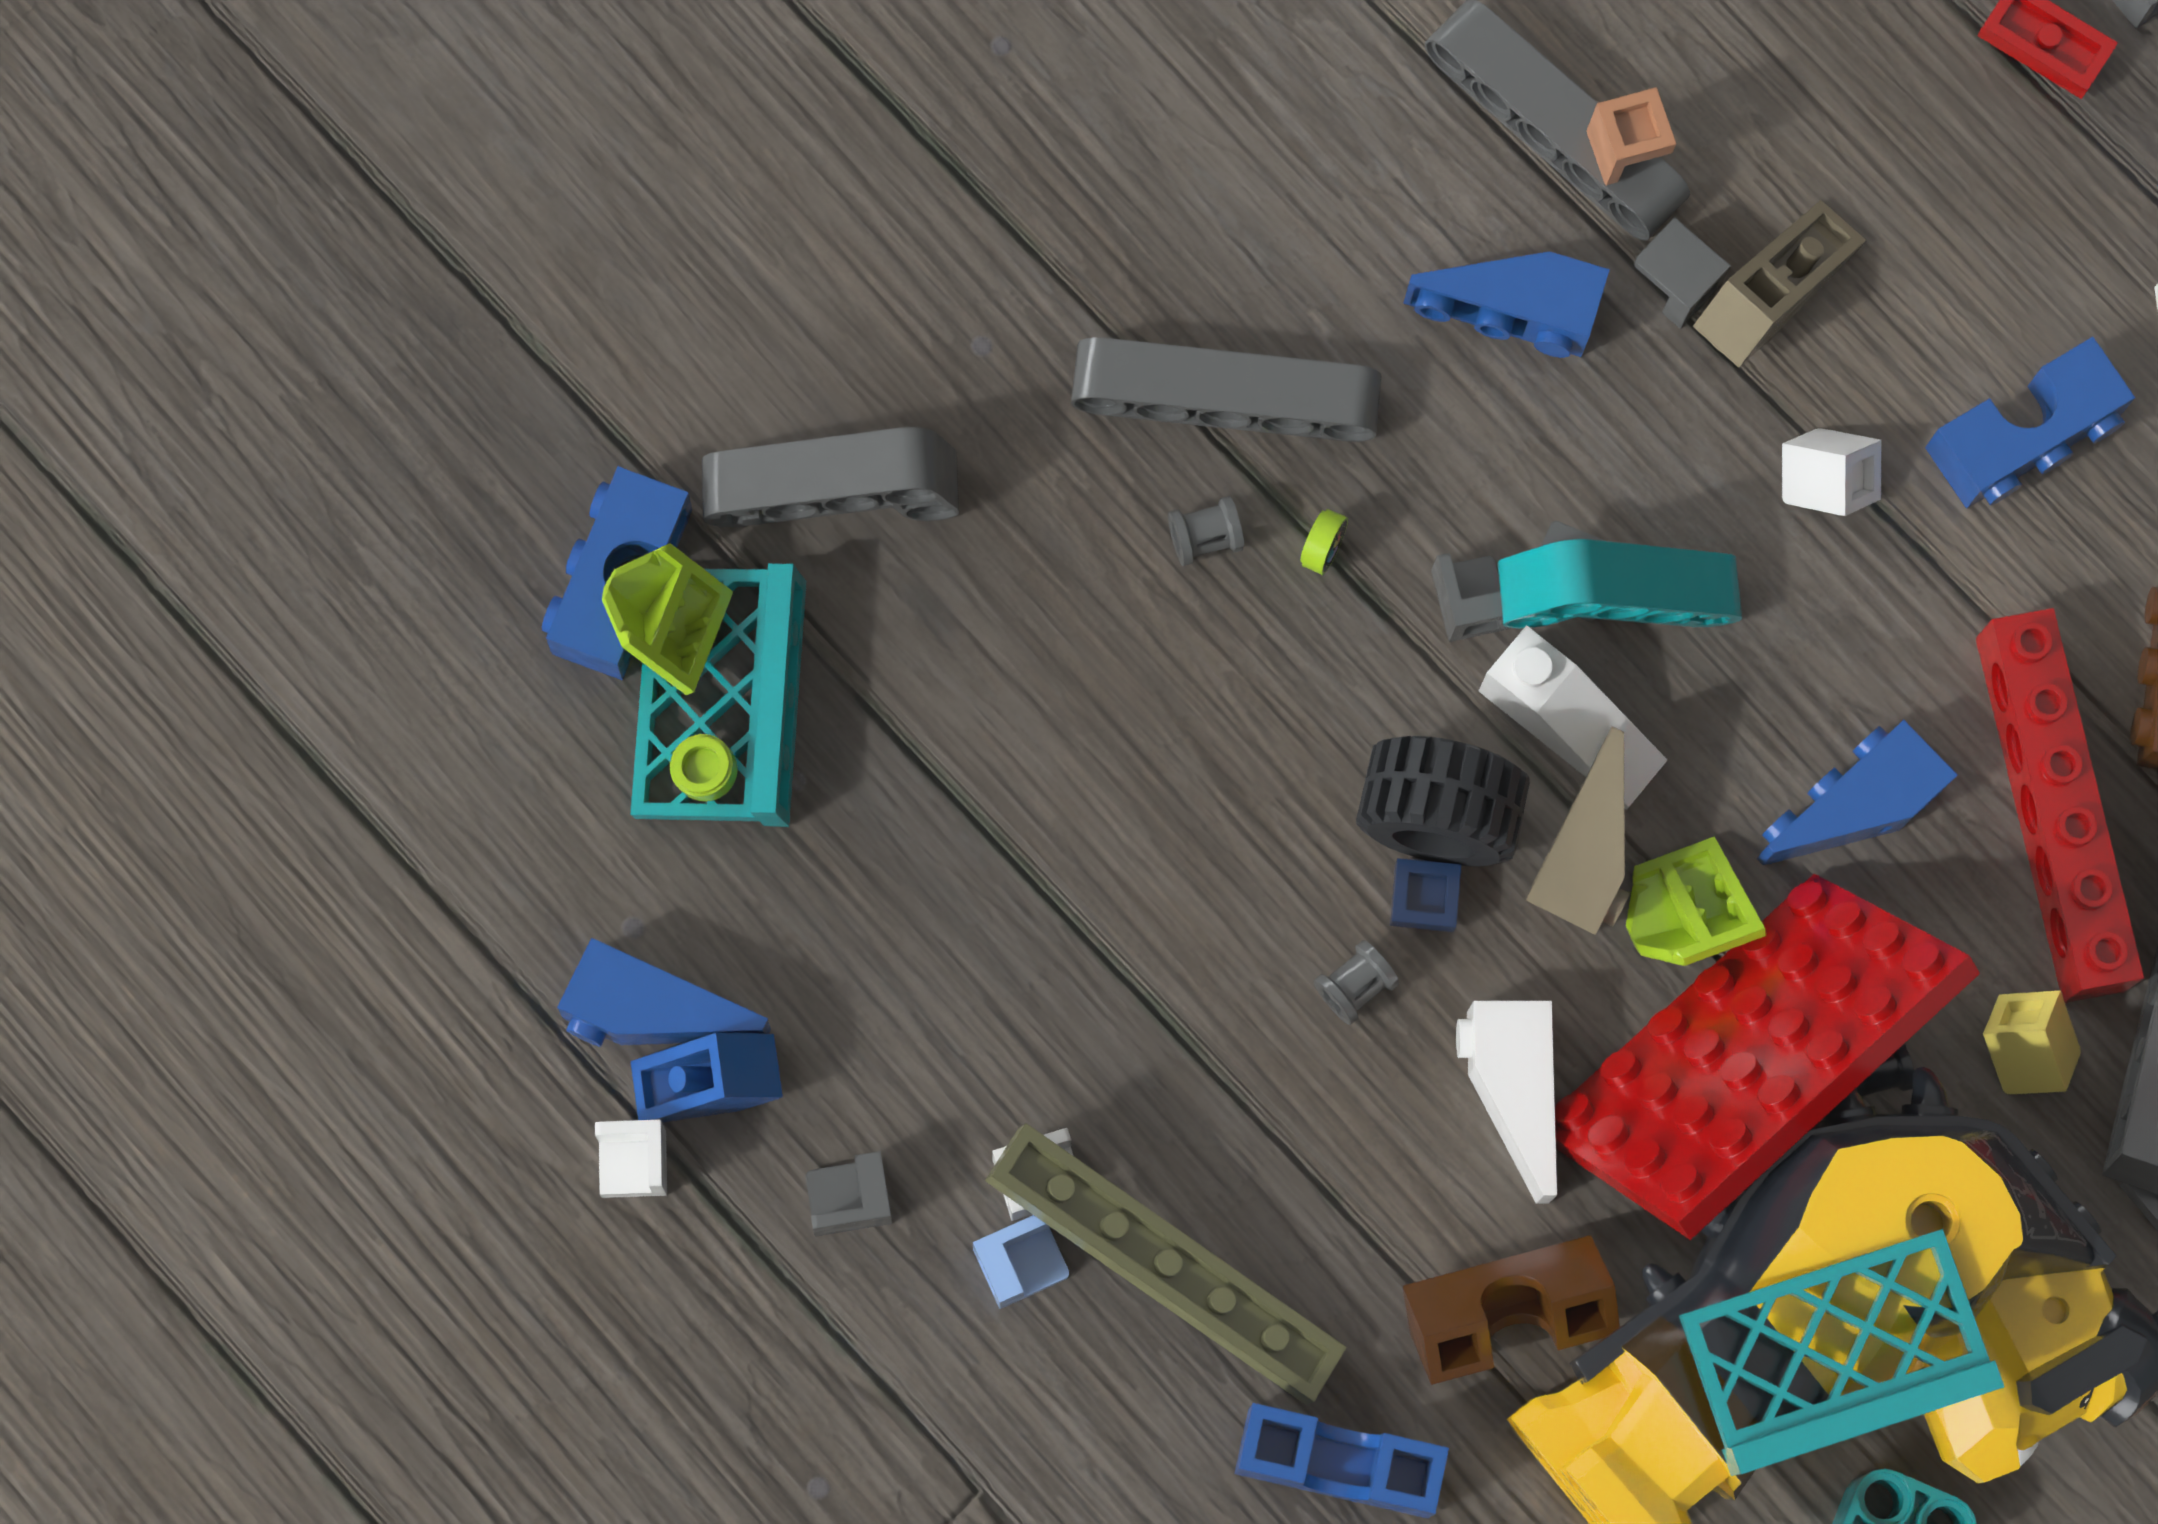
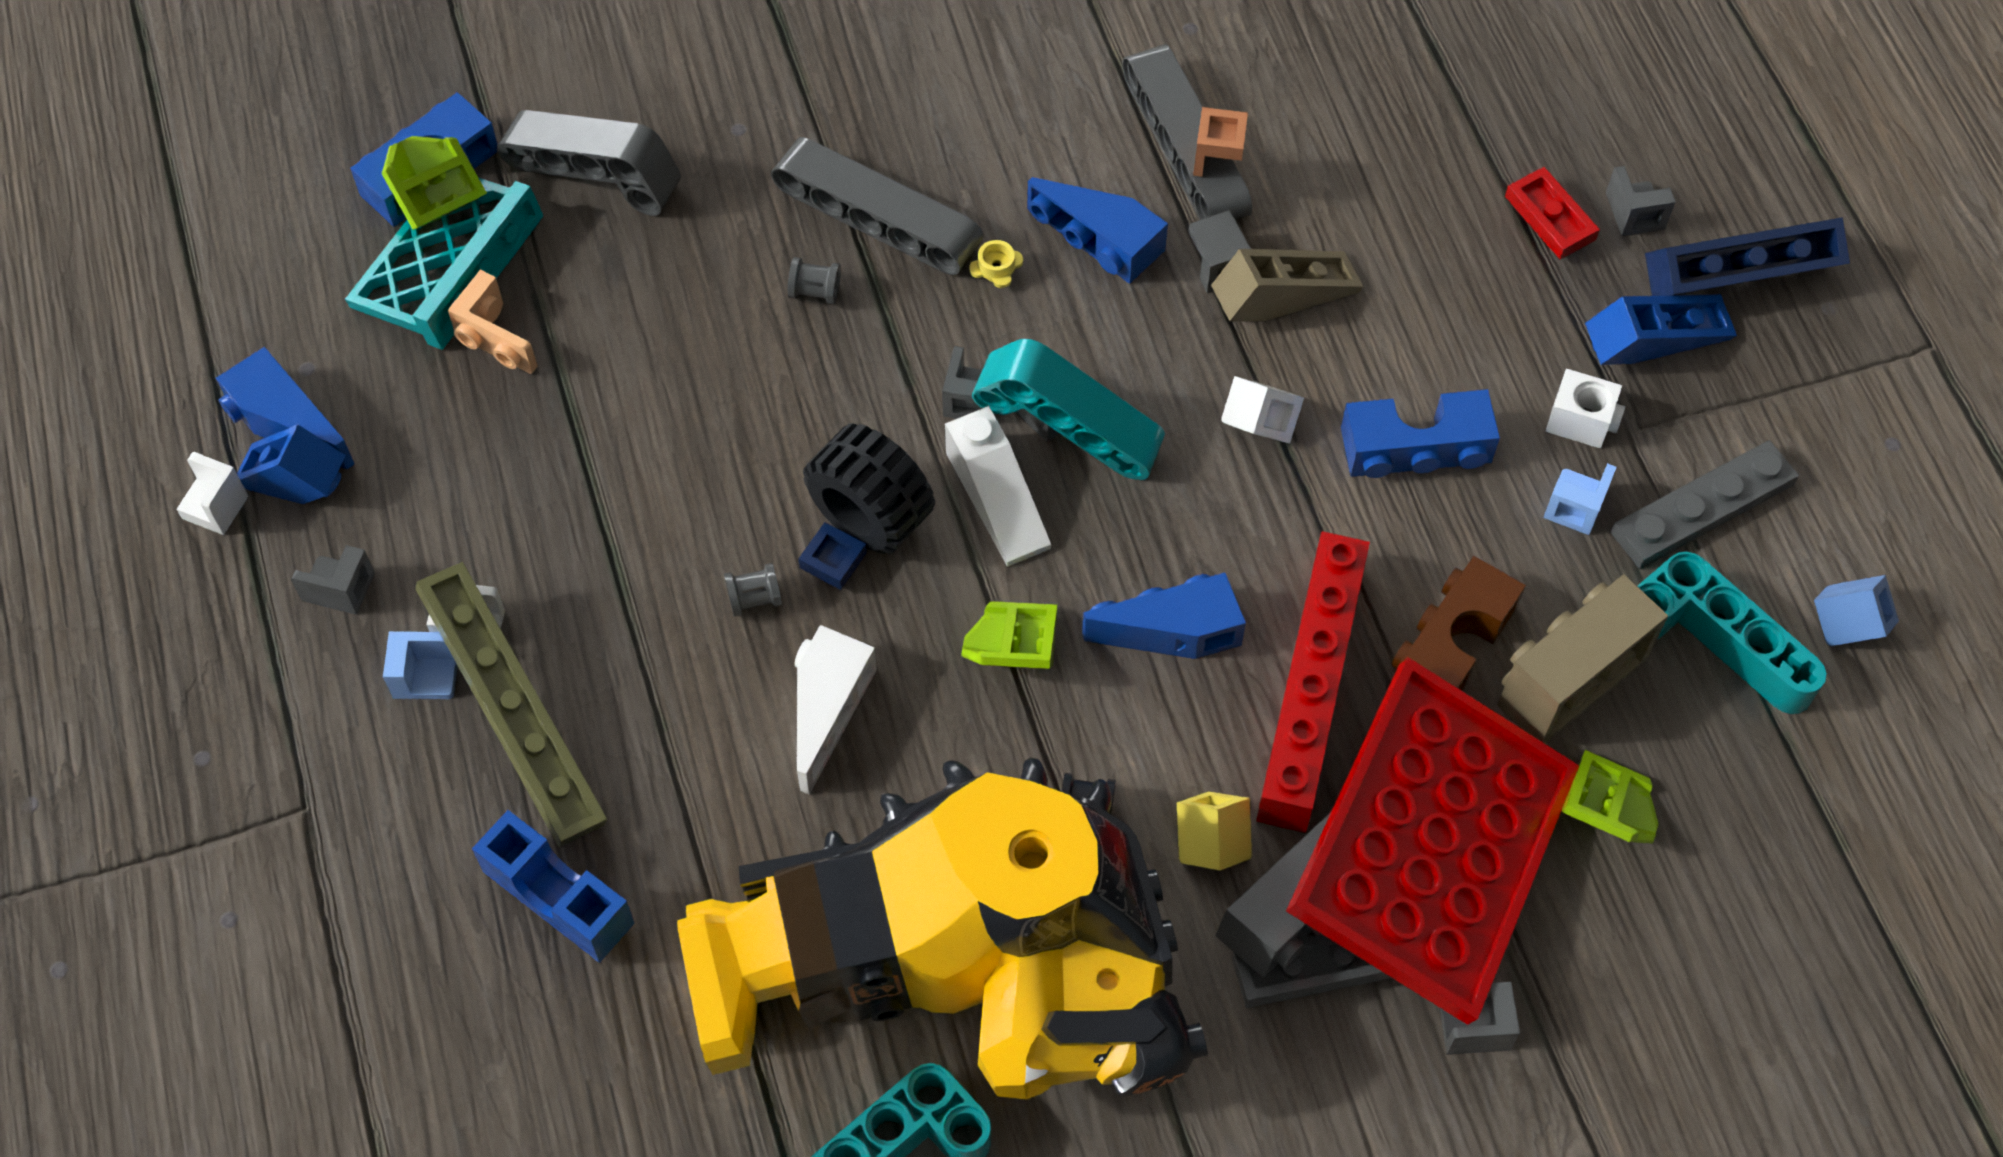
camera: 30 degrees right, 15 degrees down
(703, 767) = (403, 284): lime tile -> none
(816, 752) = (473, 324): none -> light nougat bracket
(1324, 541) = (889, 316): lime tile -> none
(1424, 392) = (1000, 253): none -> light yellow plate
(1551, 1287) = (697, 828): reddish brown arch -> none
(1588, 855) = (958, 565): dark tan slope -> none
(1757, 1053) = (993, 727): red plate -> none
(1860, 1410) = (901, 959): teal fence -> none

